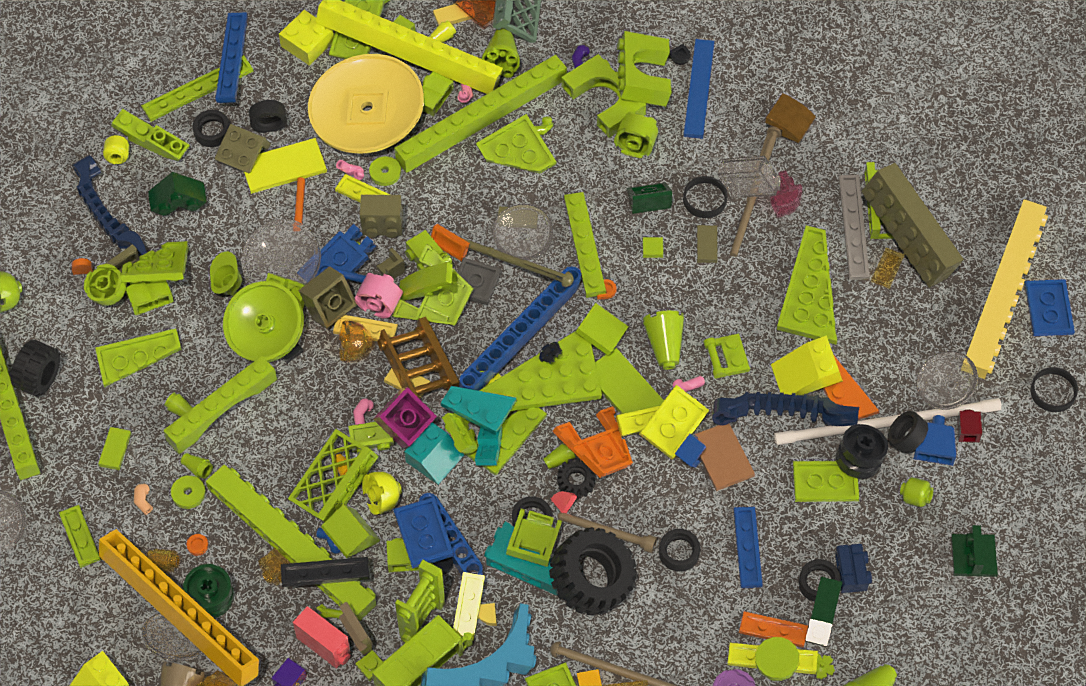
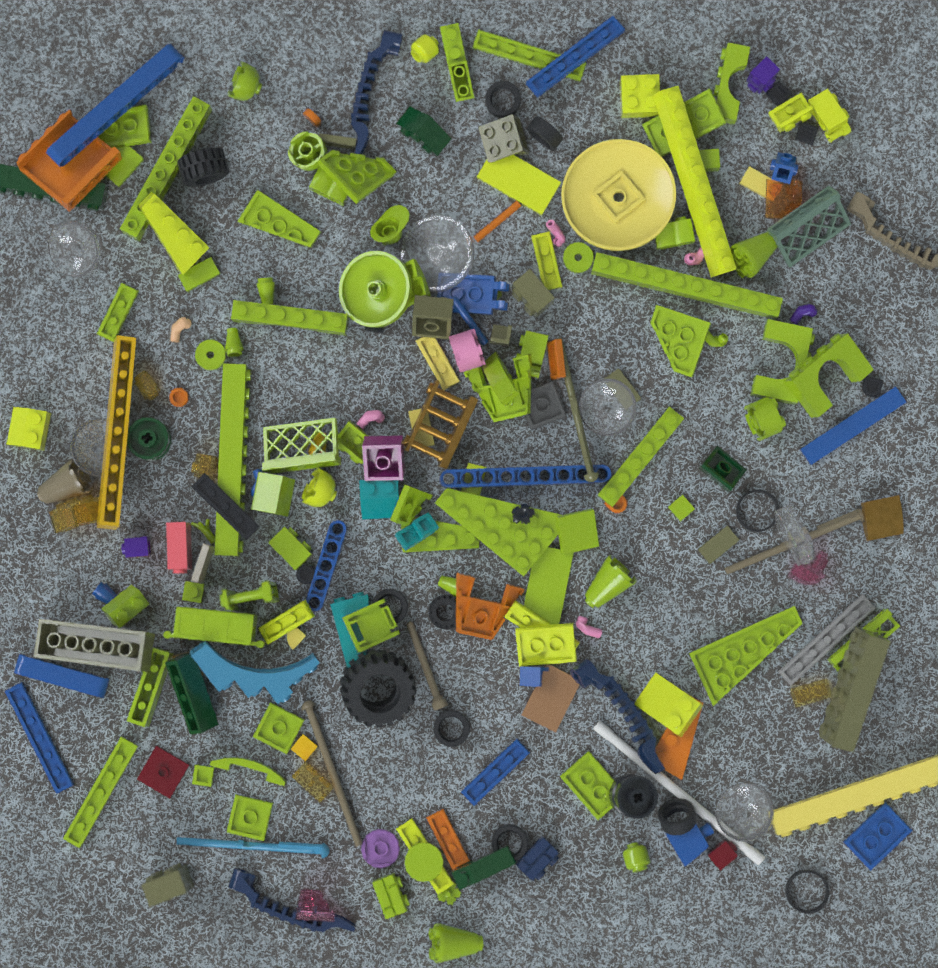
camera: 55 degrees right, 25 degrees up
(61, 430) = (176, 237): none -> neon yellow wedge
(353, 341) = (416, 366): clear yellow cylinder -> none
(423, 532) = (310, 547): blue tile -> none
(443, 32) = (734, 192): neon yellow cone -> none
(479, 407) = (435, 504): teal wing -> none
(563, 500) = (420, 618): coral tile -> none
(732, 352) = (641, 638): lime plate -> none
(974, 554) = (621, 933): dark green bracket -> none

